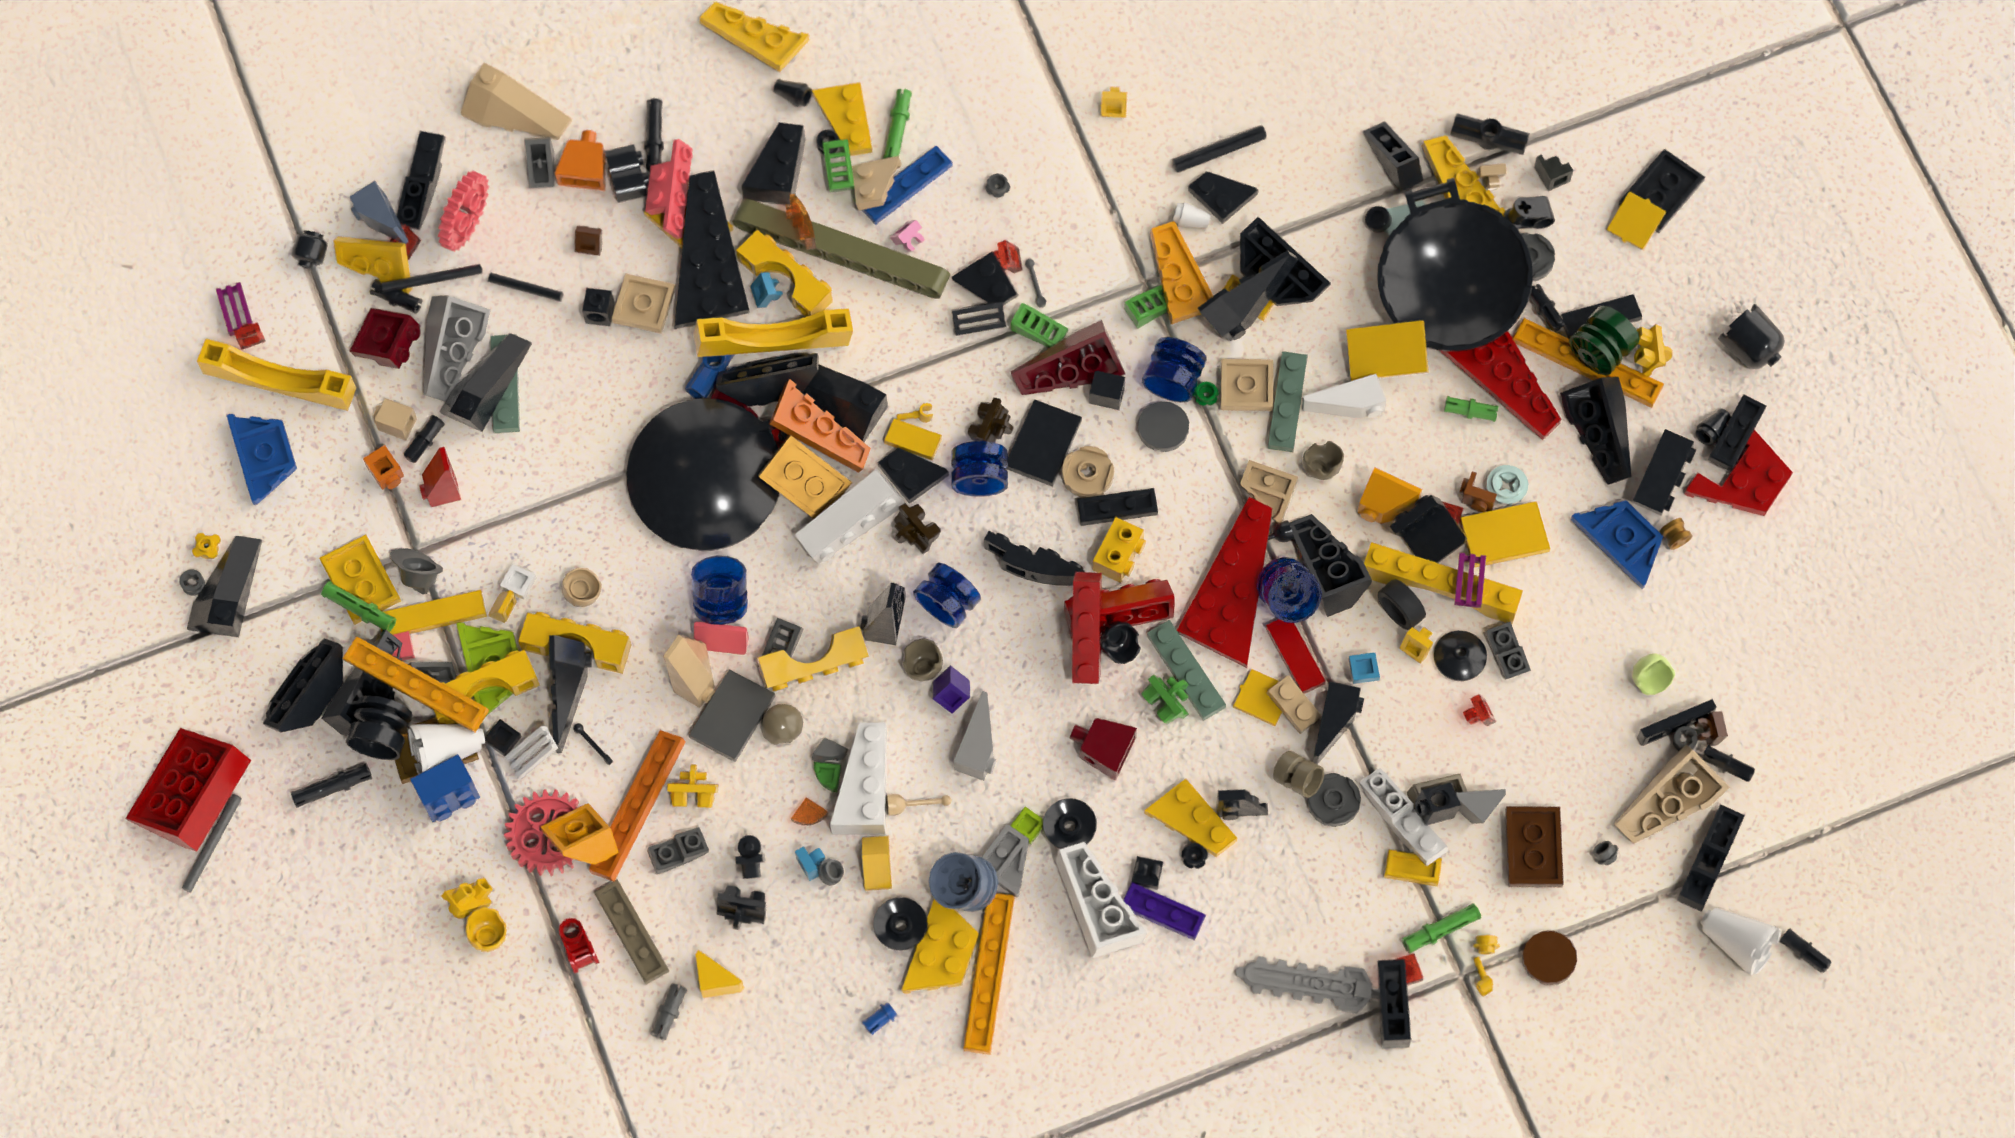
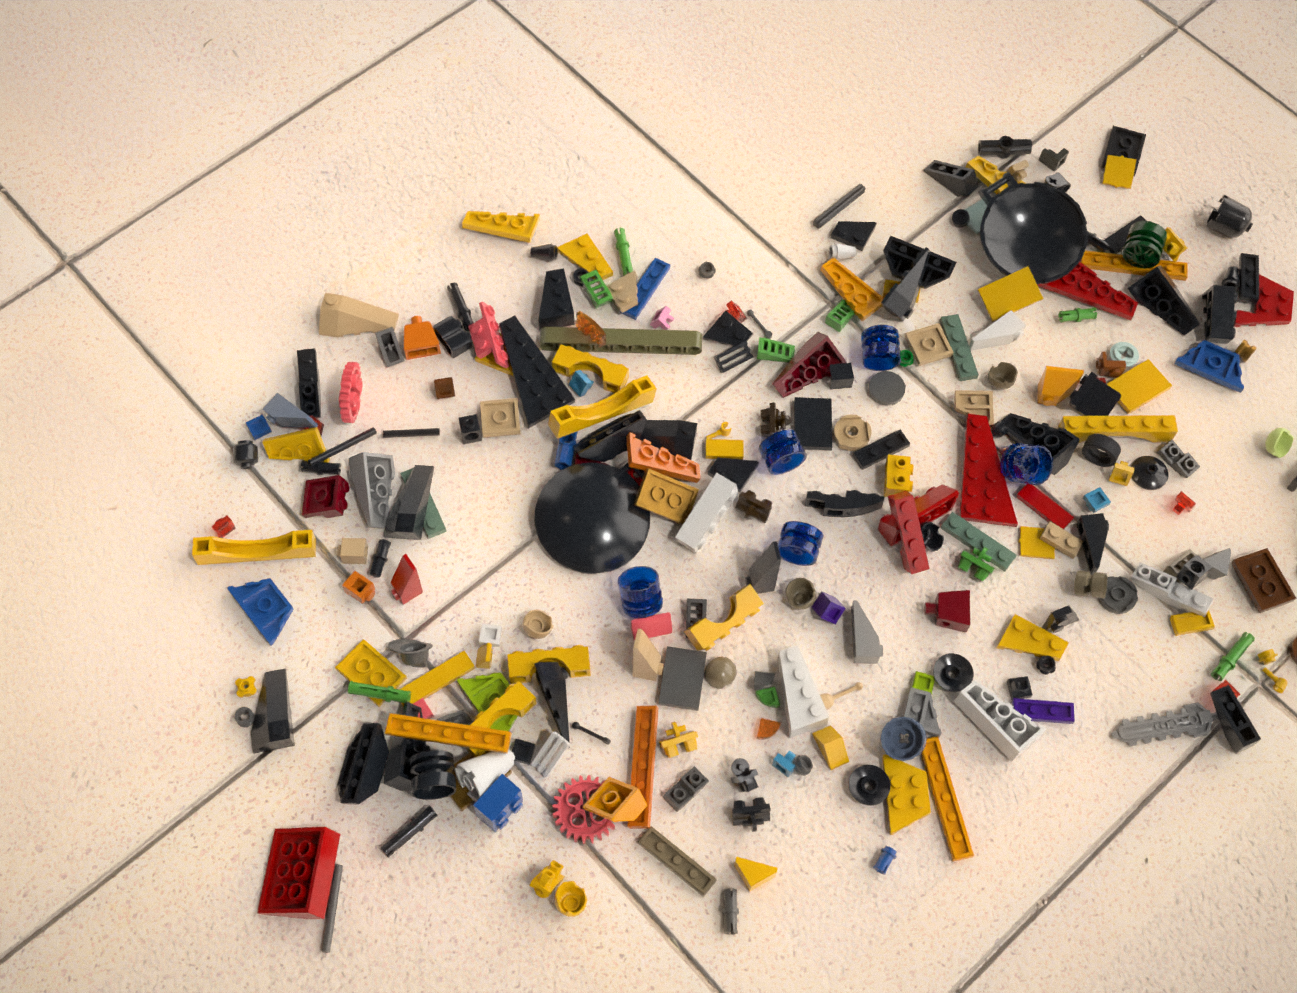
camera: 25 degrees left, 5 degrees down
(229, 291) = (196, 501): magenta tile -> none
(338, 217) = (258, 427): none -> blue plate
(578, 949) = (644, 887): red piece -> none
(1114, 103) = (760, 197): yellow tile -> none
(1472, 559) = (1140, 407): magenta tile -> none

